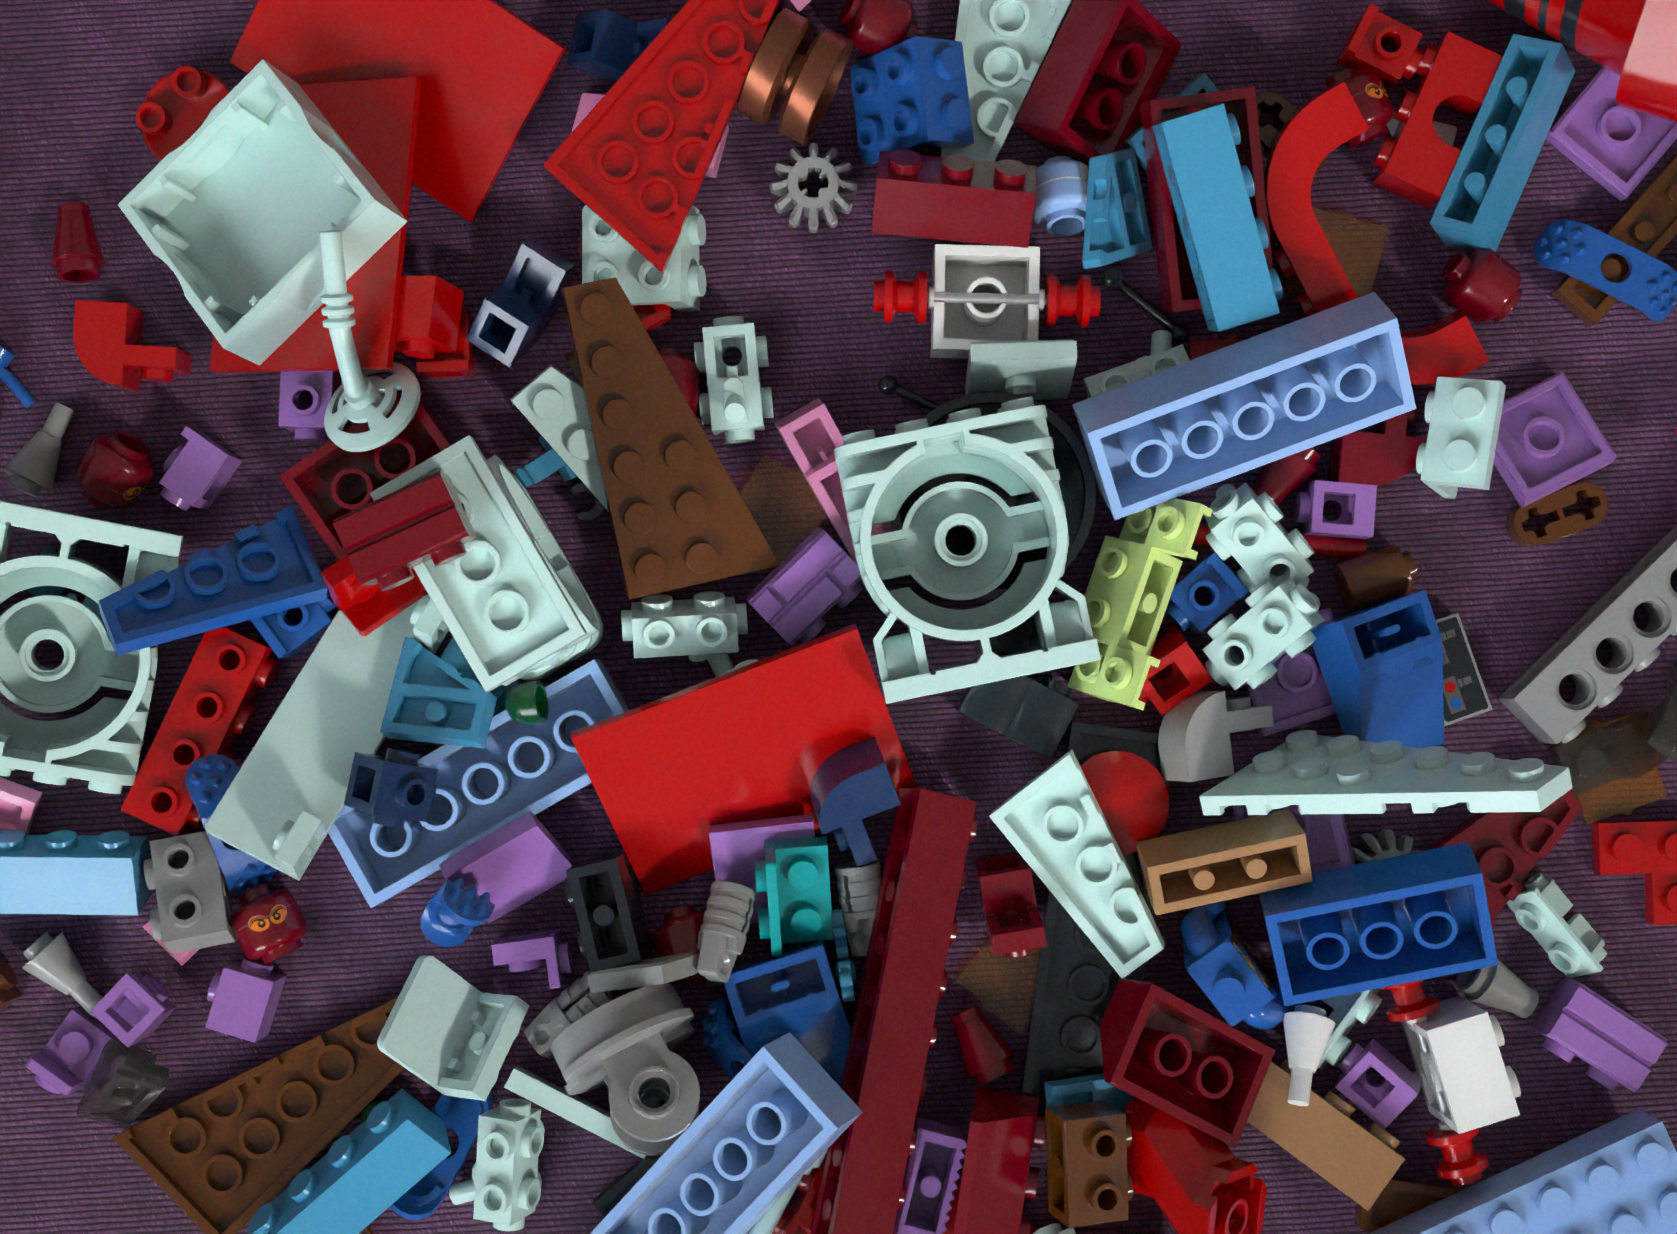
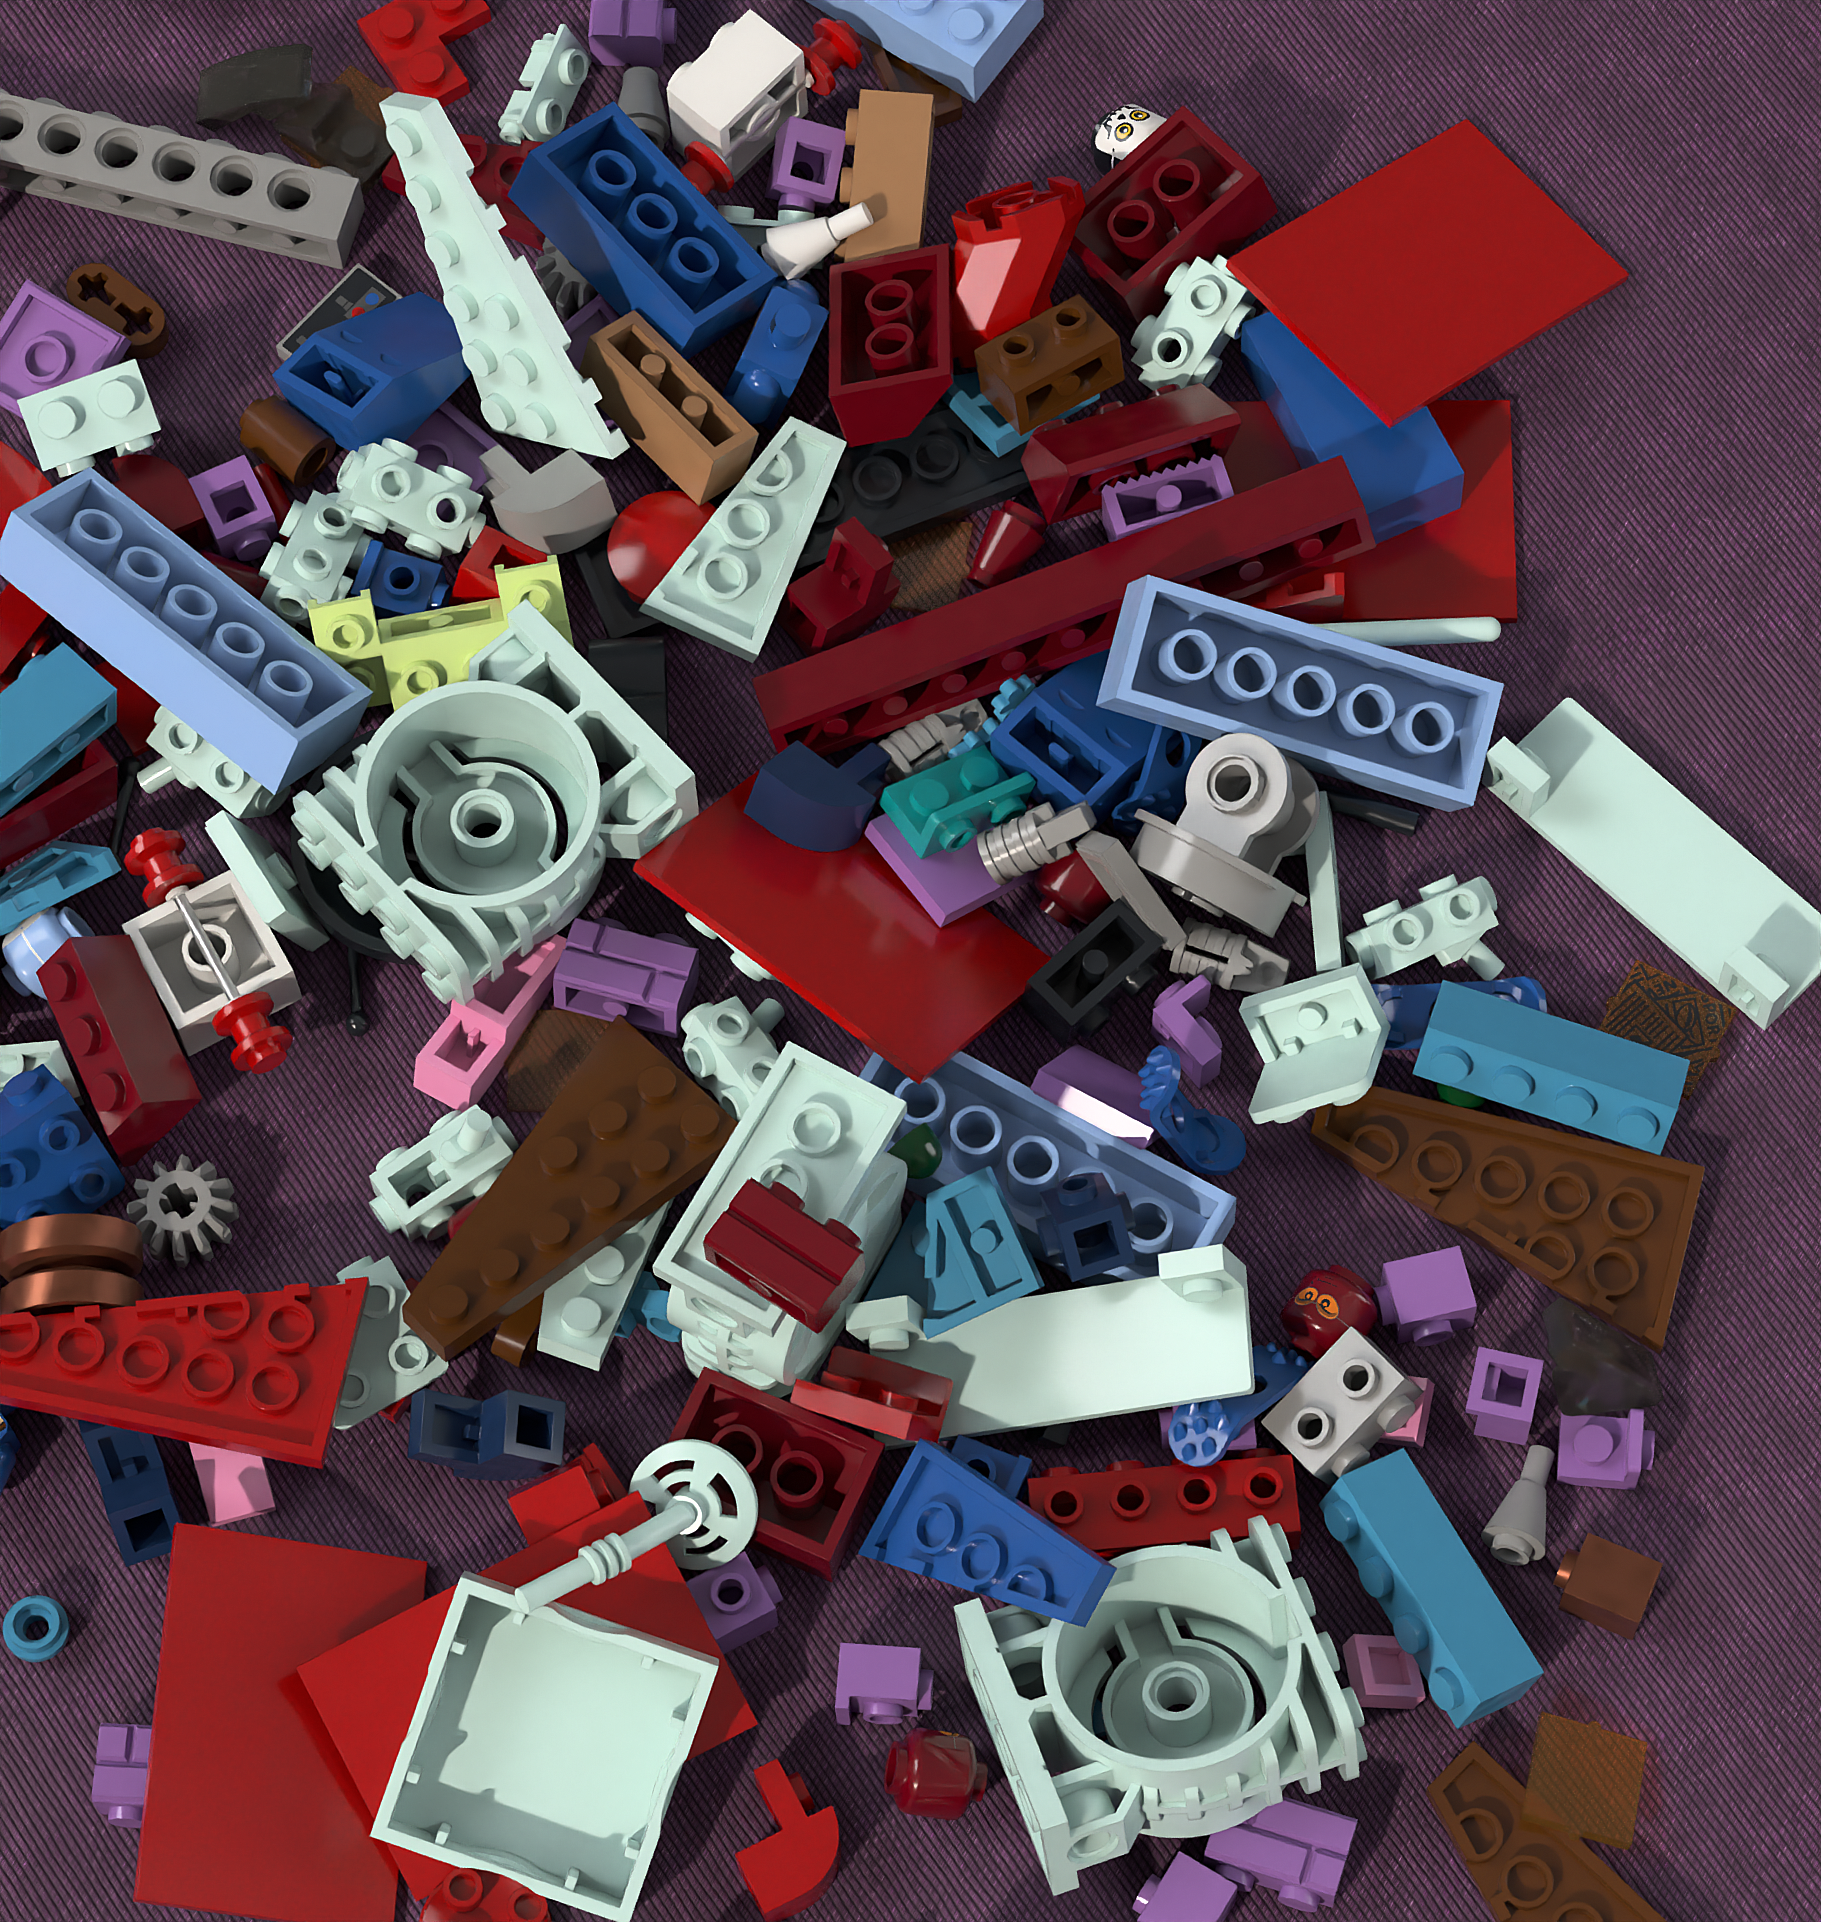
camera: 115 degrees left, 20 degrees down
(37, 461) = (978, 1871): light grey cone -> none

